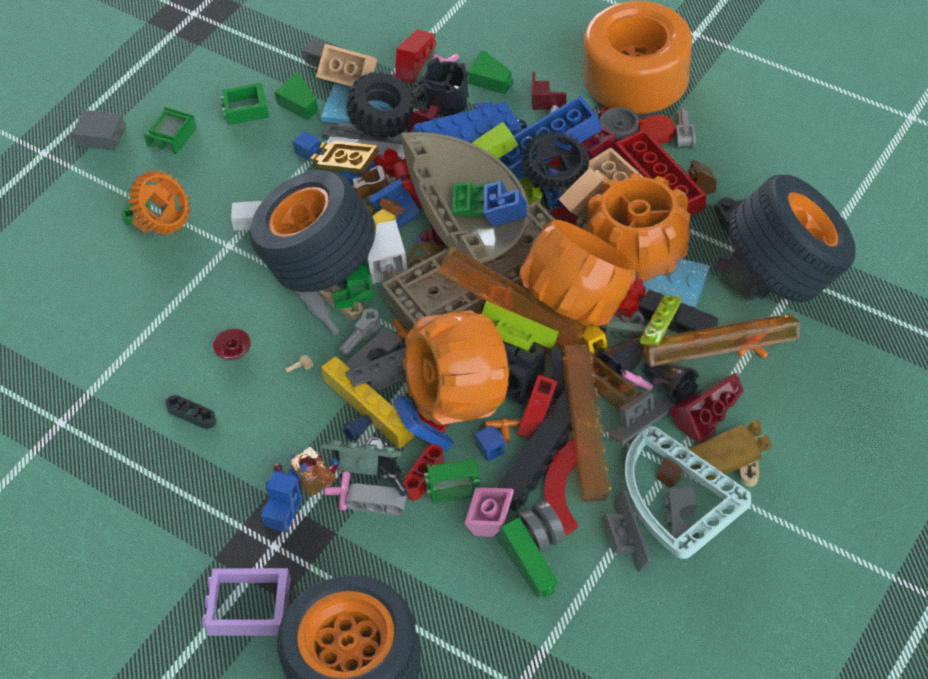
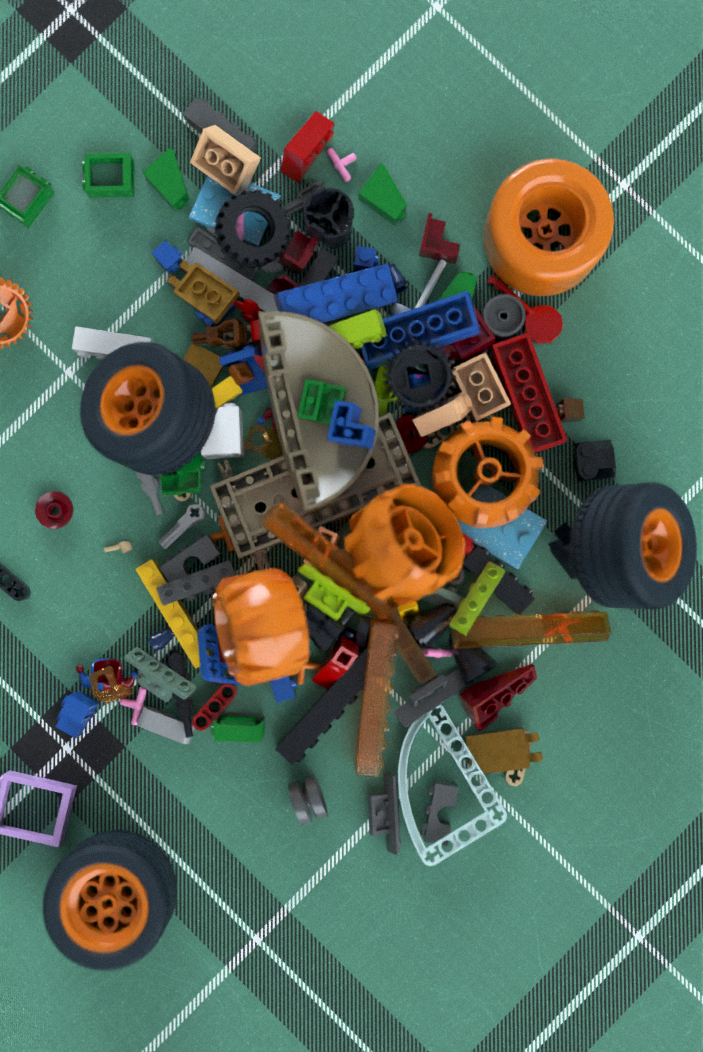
camera: 10 degrees right, 35 degrees up
(488, 511) = (265, 771): bright pink slope -> none
(527, 558) = (289, 825): green slope -> none
(555, 485) = (333, 749): red tile -> none
(669, 473) = (440, 758): reddish brown slope -> none
(684, 131) = (571, 334): light grey connector -> none

